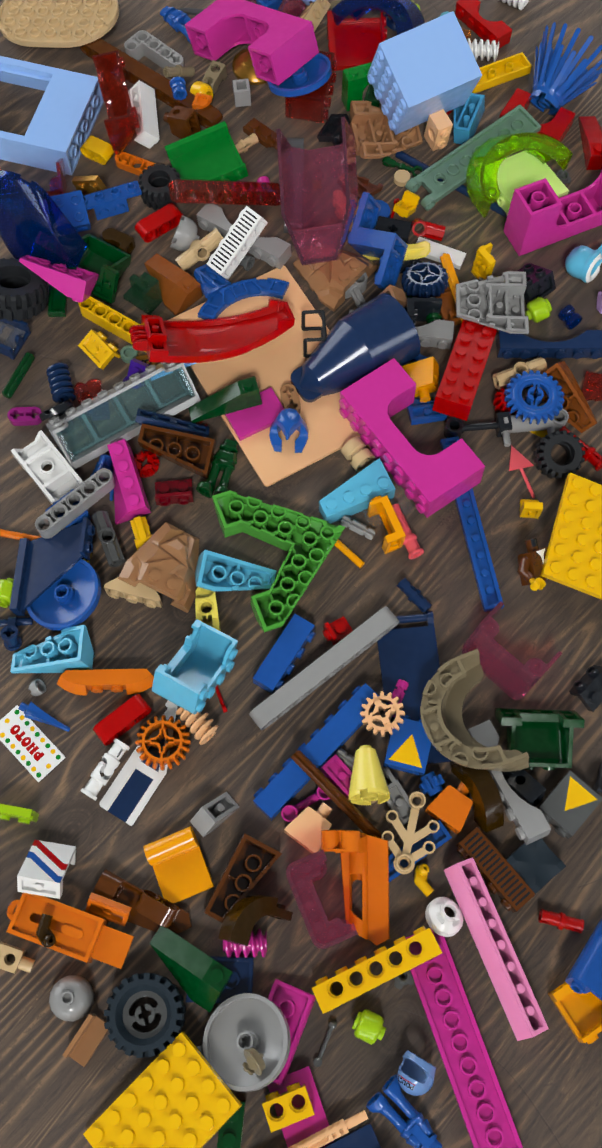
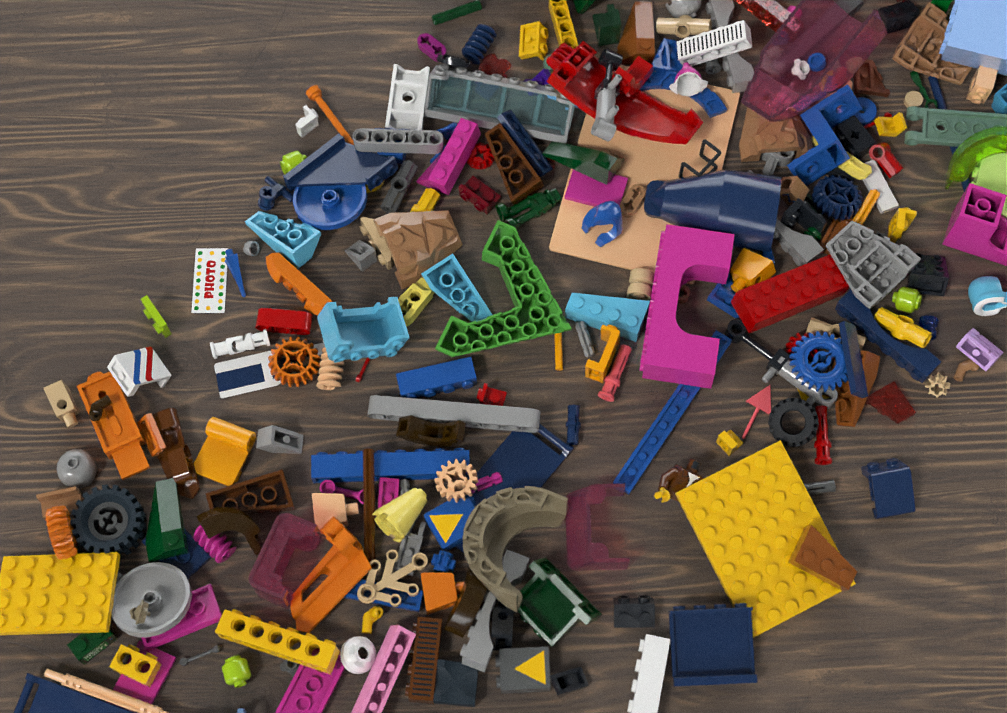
camera: 45 degrees right, 0 degrees up
(117, 1064) = (60, 532): none -> orange gear
(130, 613) = (362, 255): none -> light grey slope
(202, 335) = (606, 96): none -> light grey piece
(204, 310) = (635, 76): none -> red arch
(245, 283) = (688, 82): none -> white hat
(312, 213) = (800, 68): none -> white plate
(318, 199) = (816, 62): none -> blue tile
(324, 696) = (430, 433): none -> dark brown arch
(555, 376) = (853, 359): none -> dark blue tile
(558, 329) = (902, 327): none -> yellow piece

